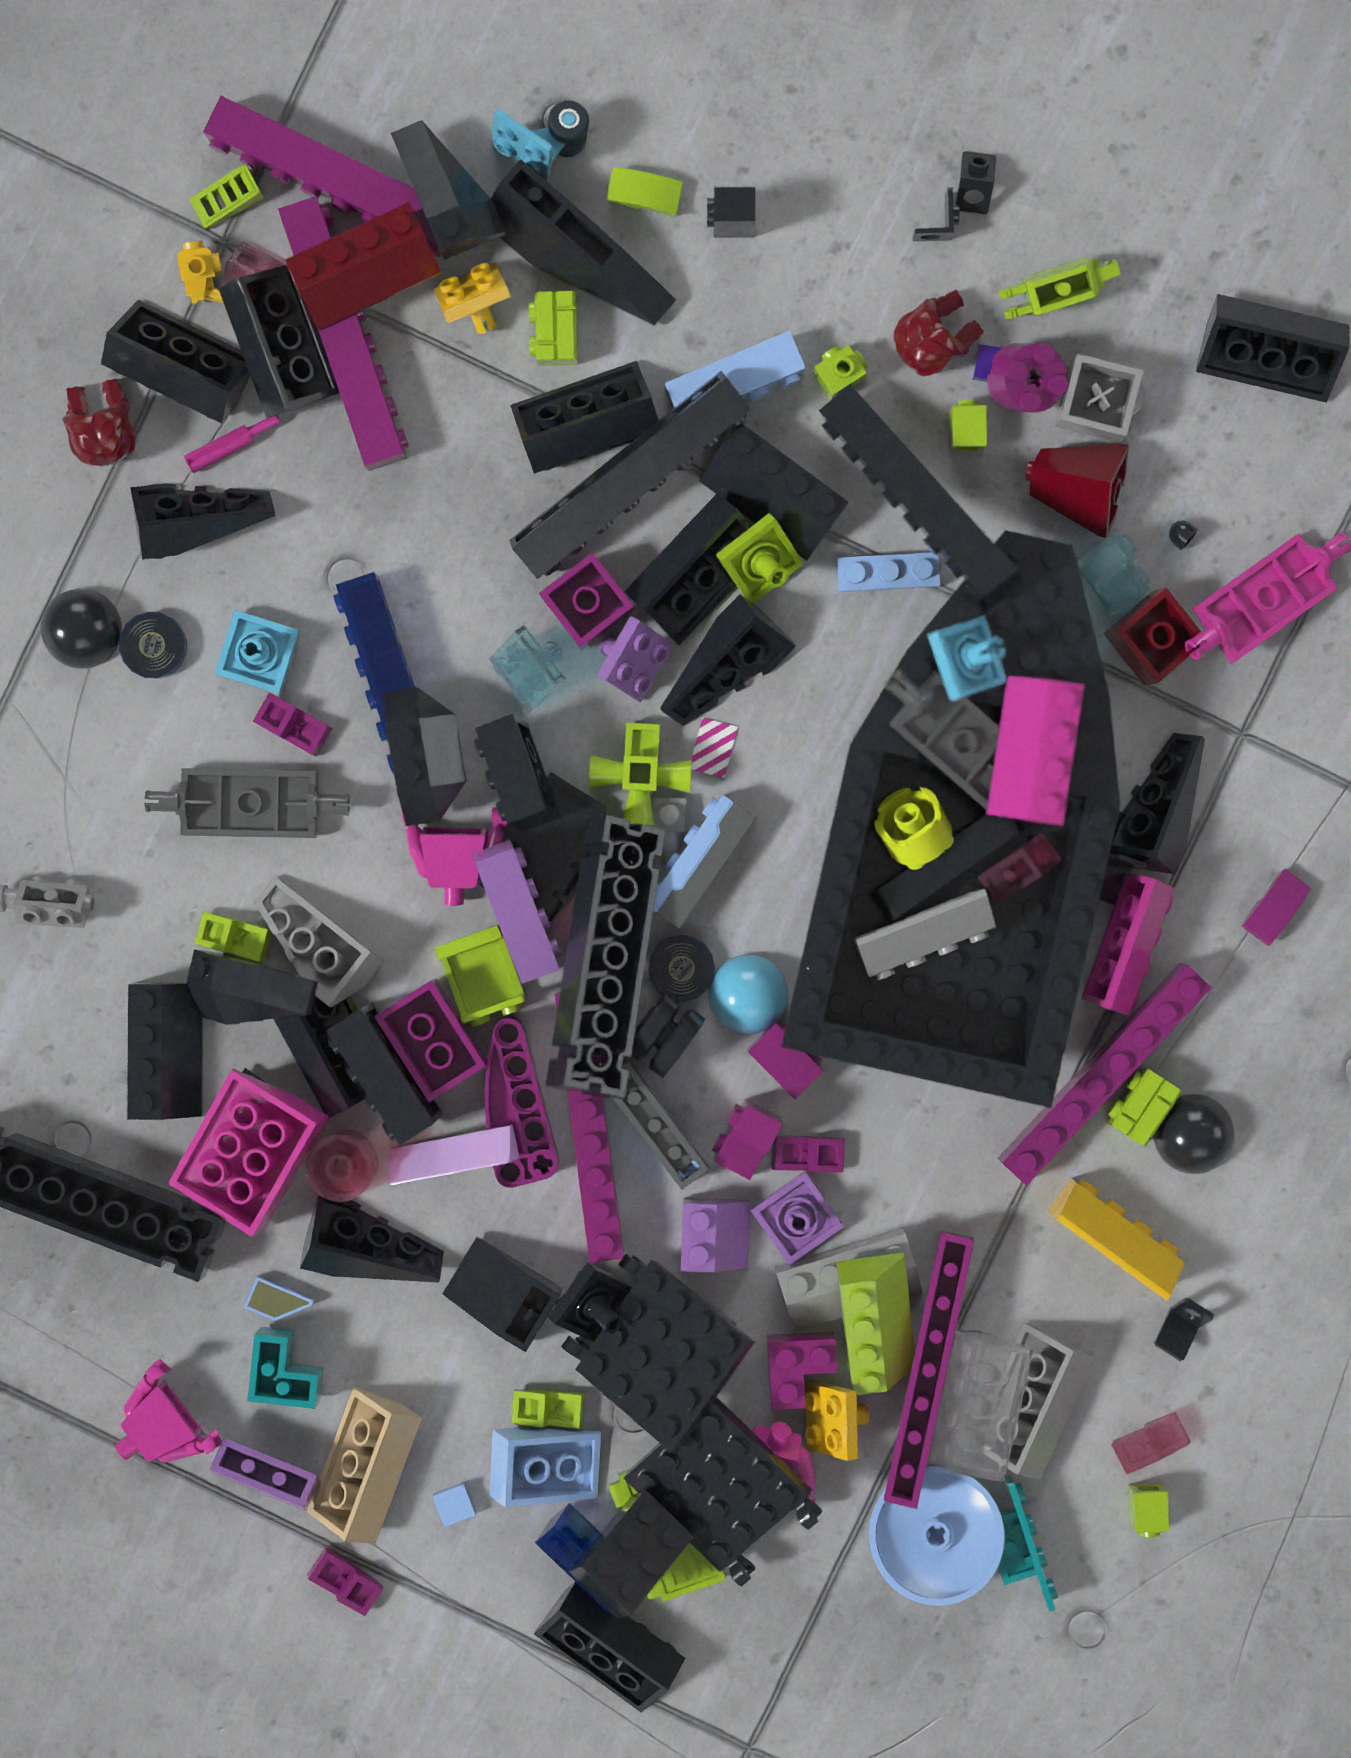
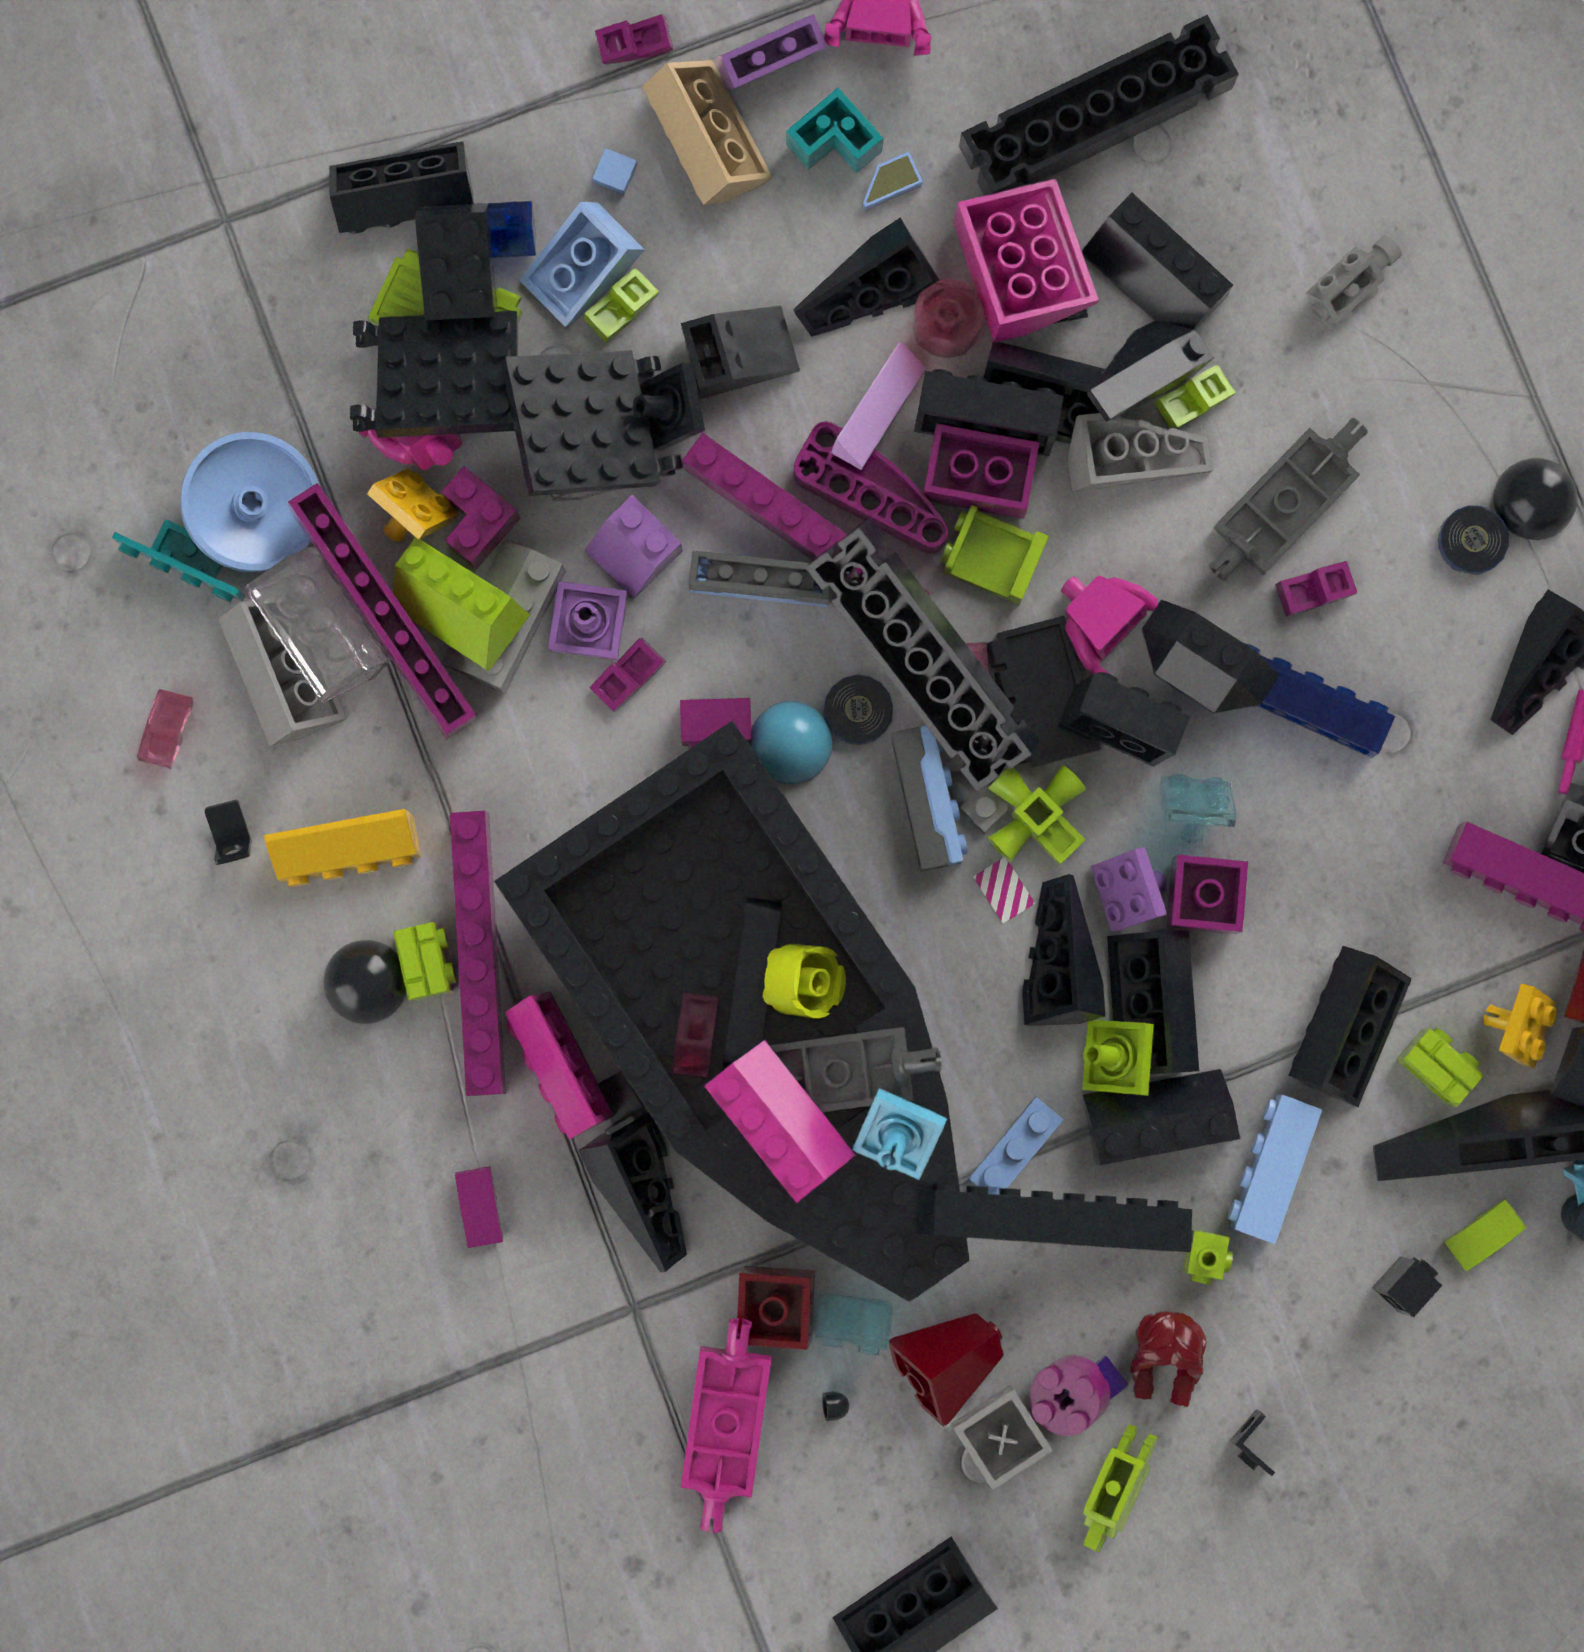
camera: 130 degrees right, 5 degrees down
(257, 652) = (1396, 612): medium azure plate -> none
(516, 912) = (1019, 622): medium lavender brick -> none
(630, 475) = (1275, 1016): black brick -> none
(667, 1036) = (826, 646): black wheel -> none
(748, 1138) = (683, 638): magenta brick -> none
(925, 932) = (714, 914): light grey slope -> none
(968, 426) = (1072, 1315): lime brick -> none
(979, 175) = (1263, 1506): black bracket -> none
(1148, 1509) = (117, 680): lime brick -> none

